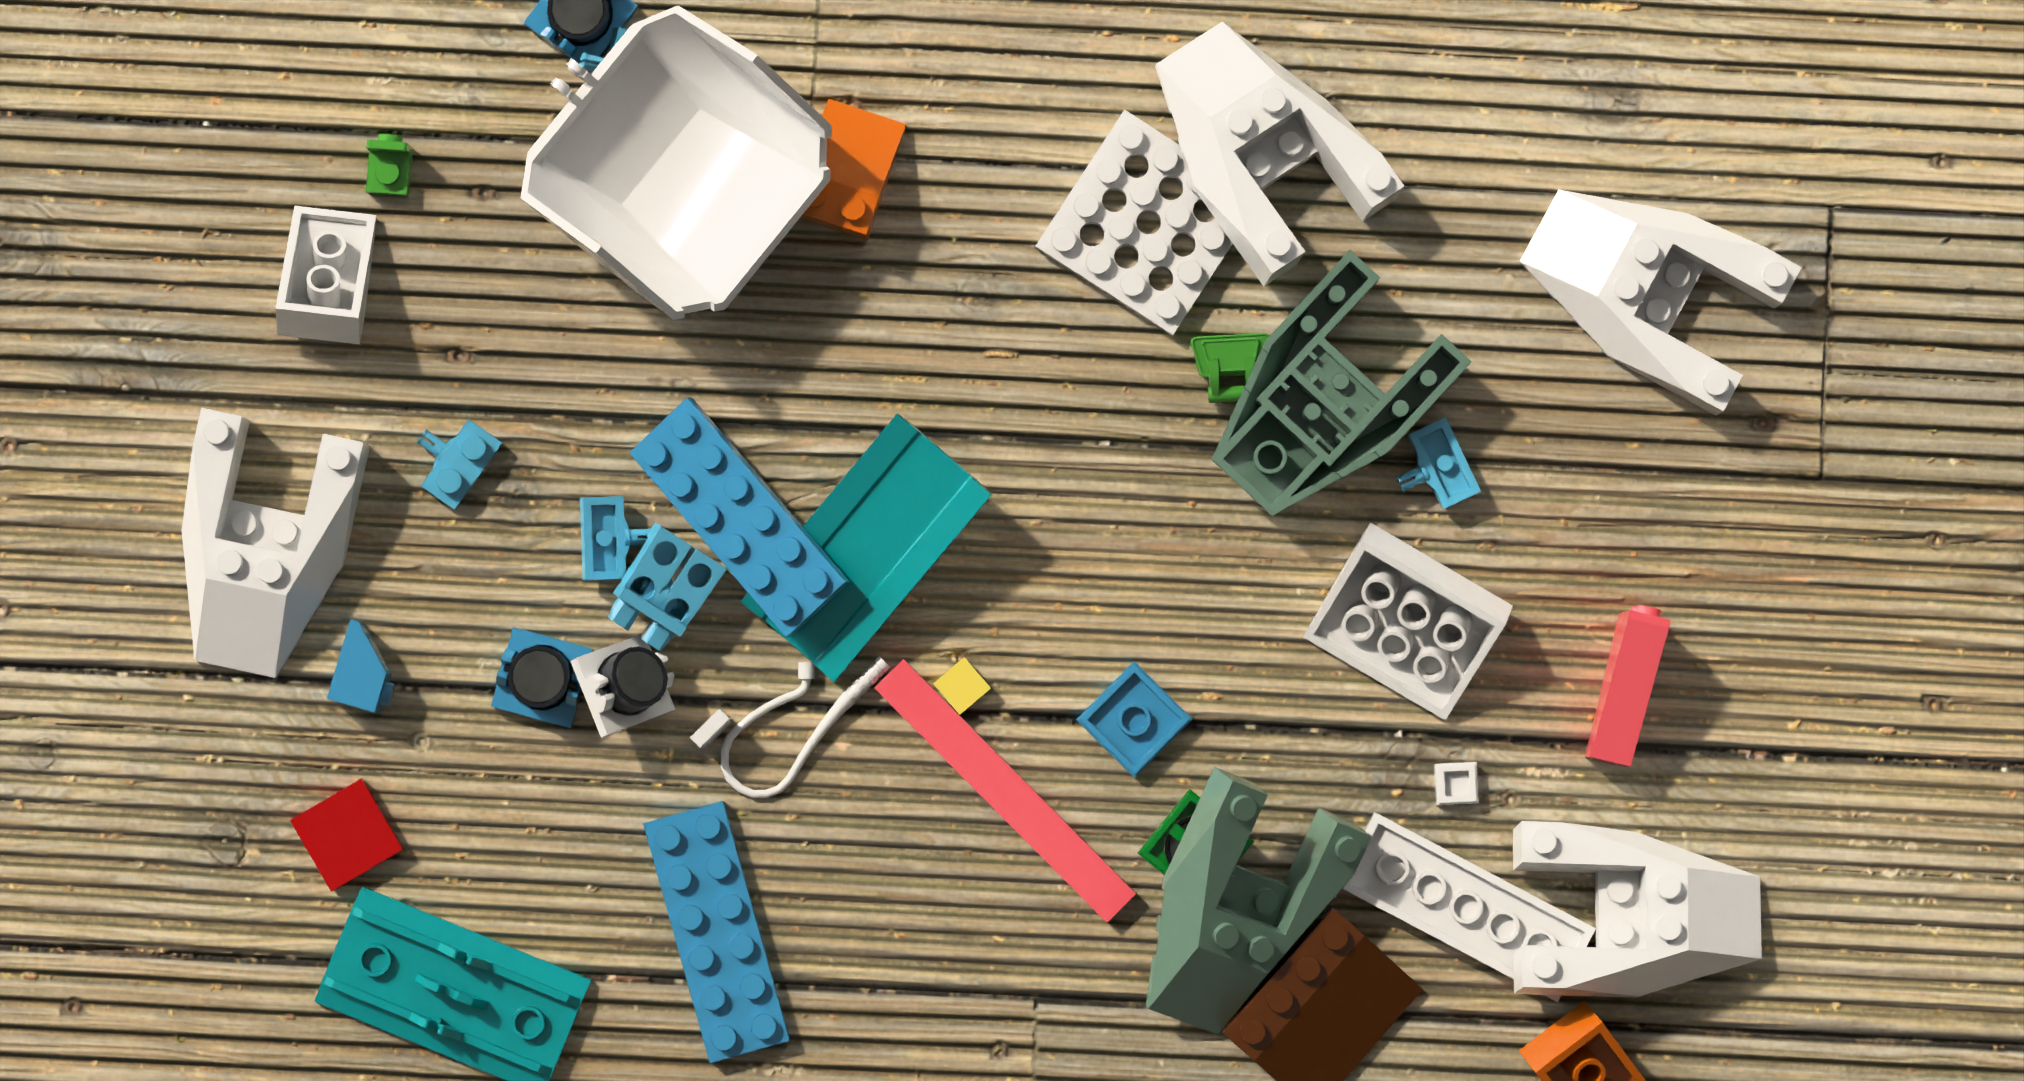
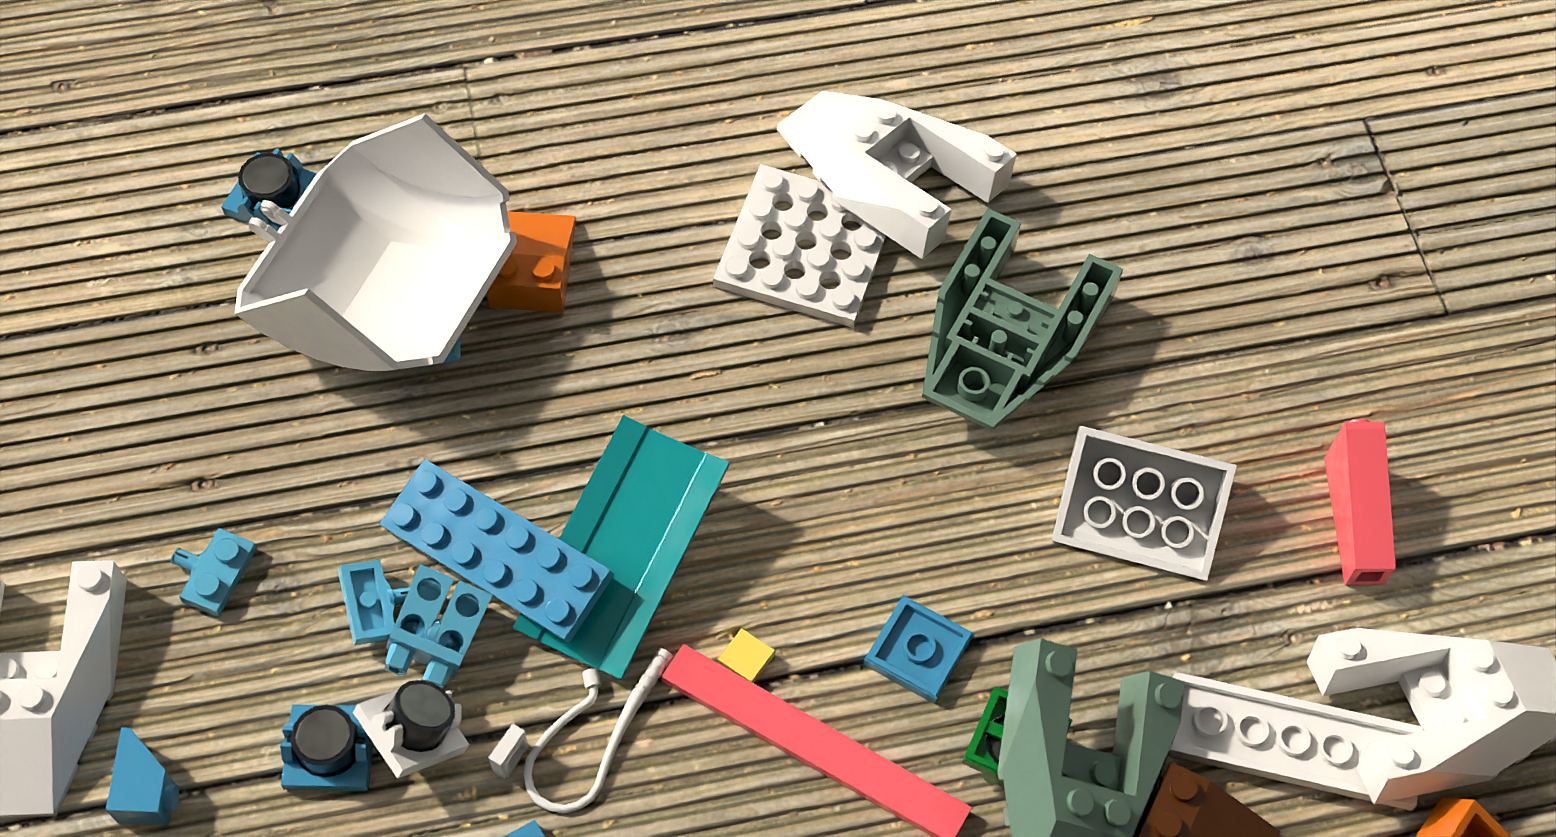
camera: 15 degrees left, 25 degrees down
(326, 275) = (63, 440): white slope -> none
(389, 166) = (113, 339): bright green bracket -> none
(1226, 357) = (905, 326): bright green piece -> none
(1440, 465) = (1123, 369): medium azure plate -> none
(1456, 783) = (1238, 633): white tile -> none
(1629, 273) = (1232, 198): white wedge -> none

